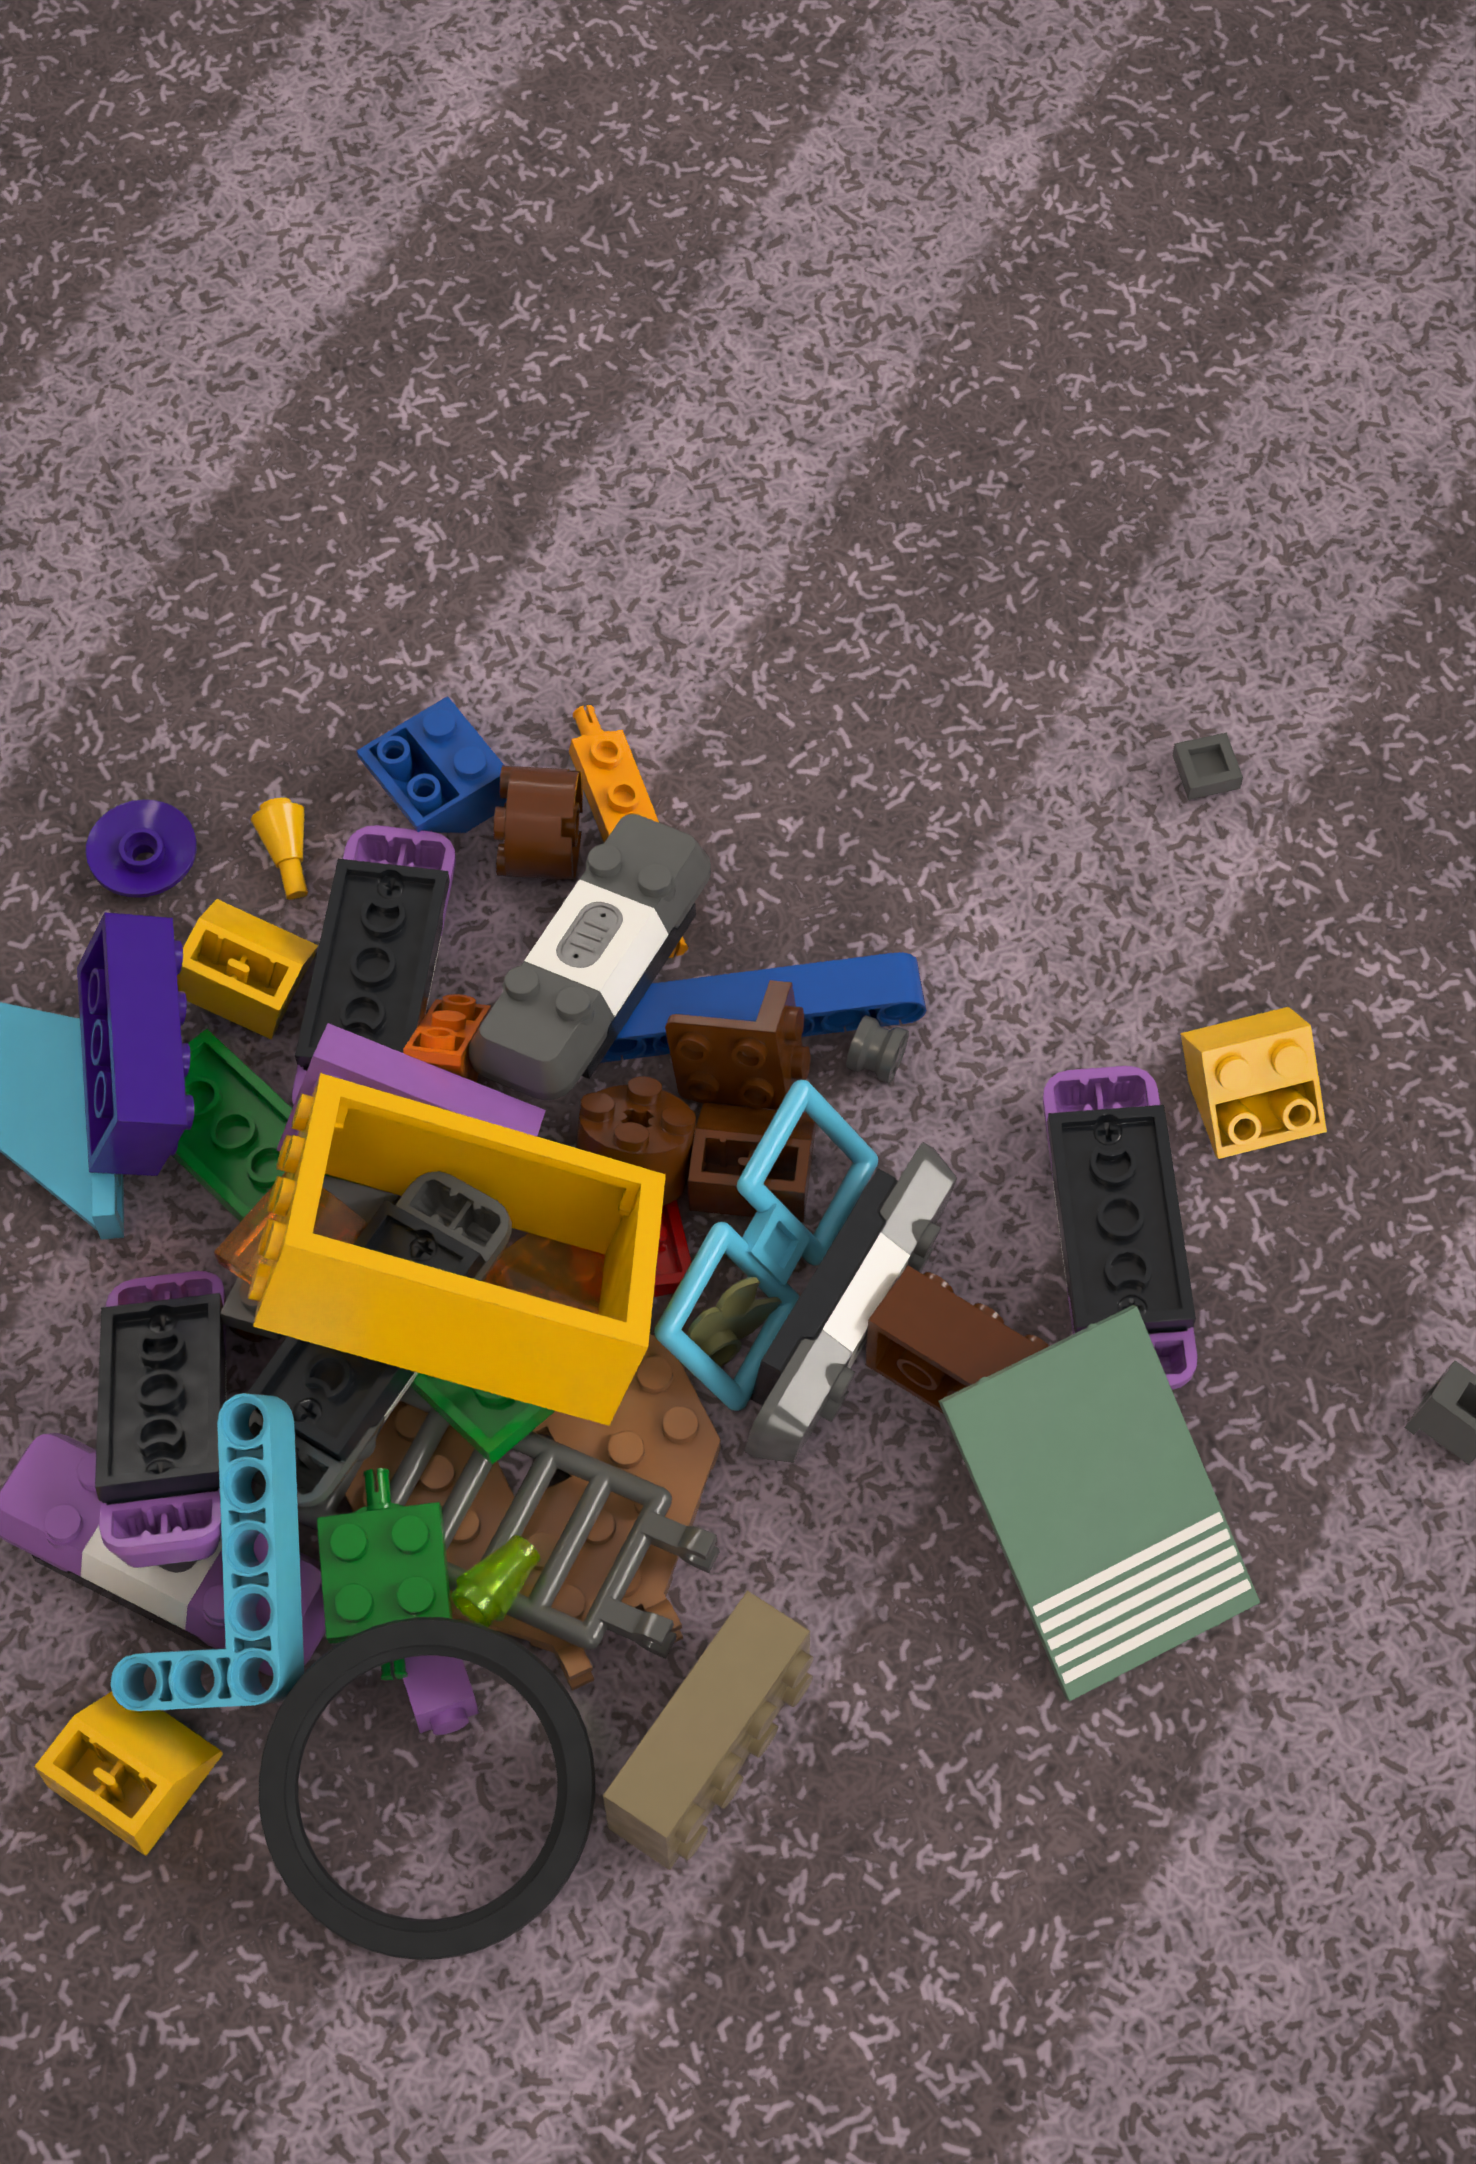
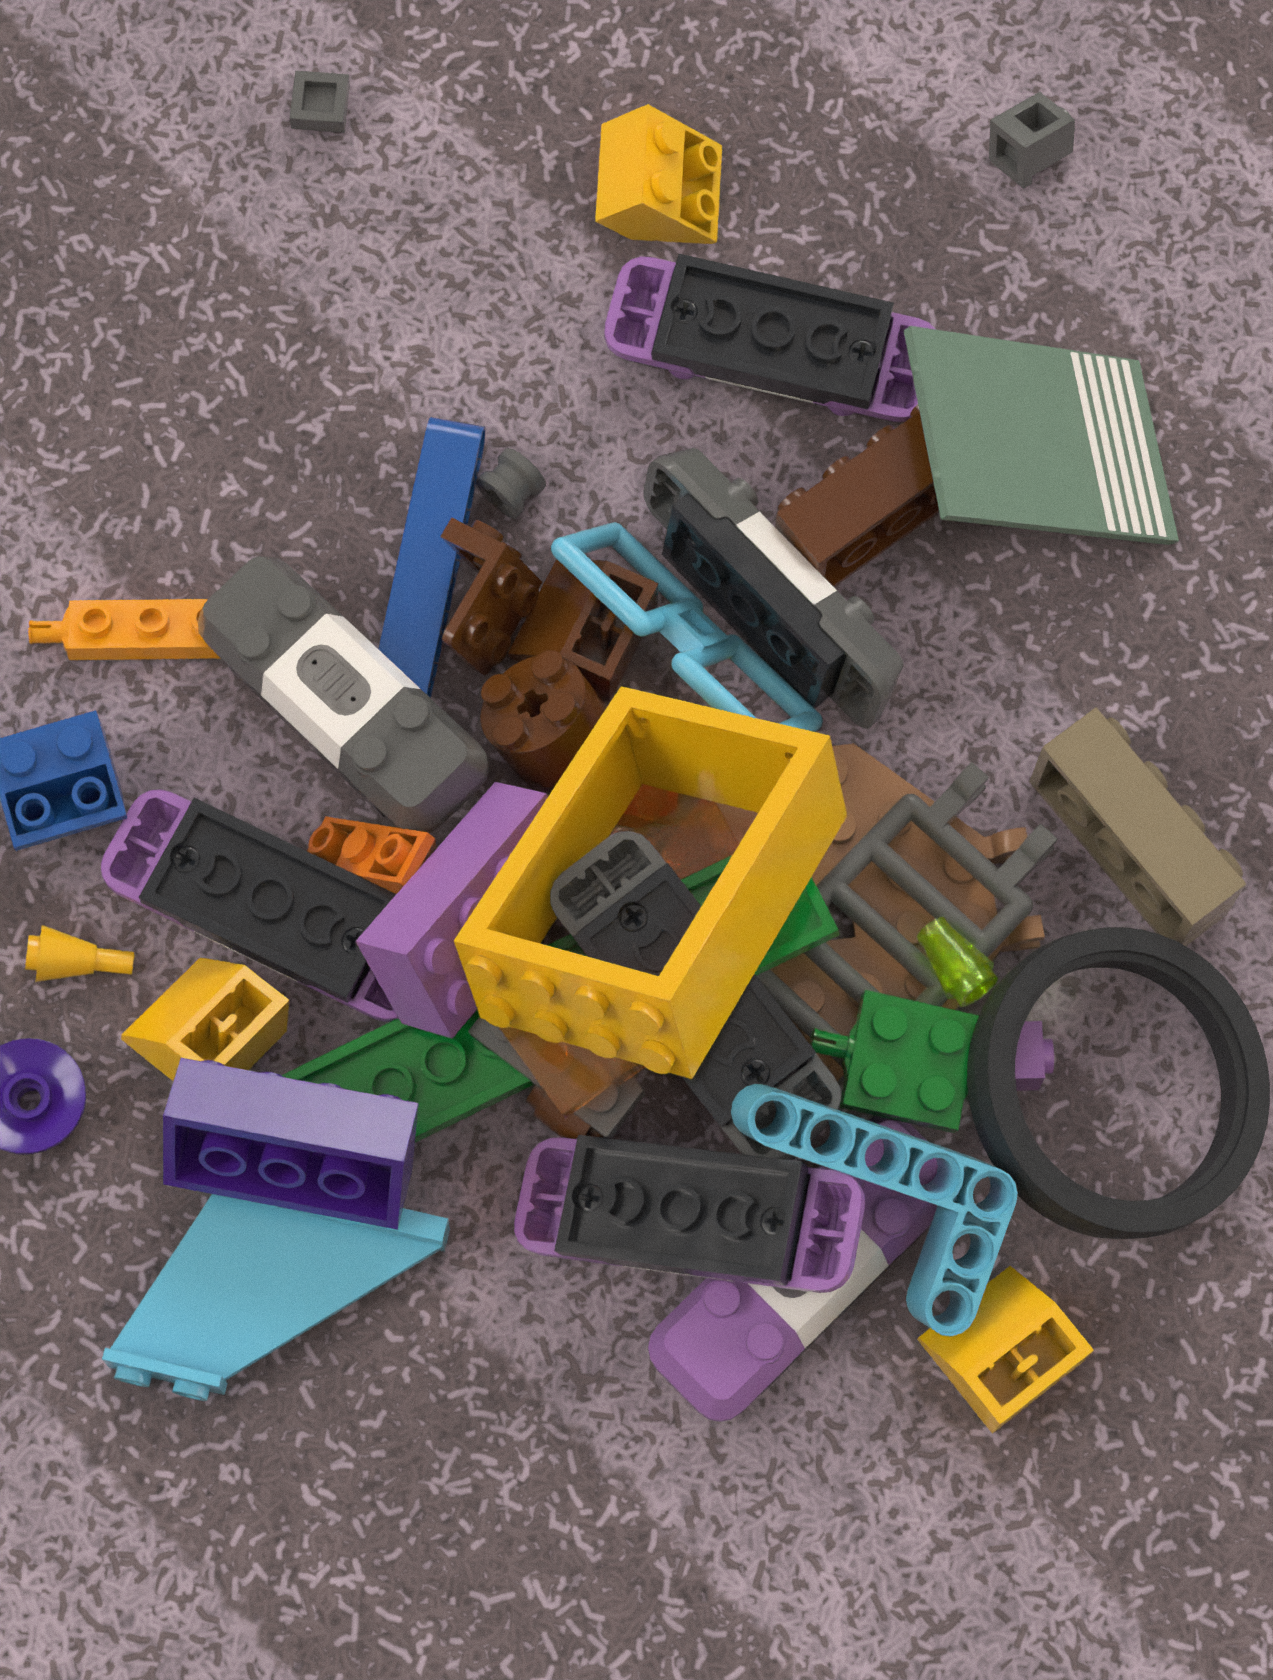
camera: 75 degrees left, 10 degrees up
(539, 822) = (161, 700): reddish brown brick -> none
(733, 1318) = (759, 706): olive plate -> none

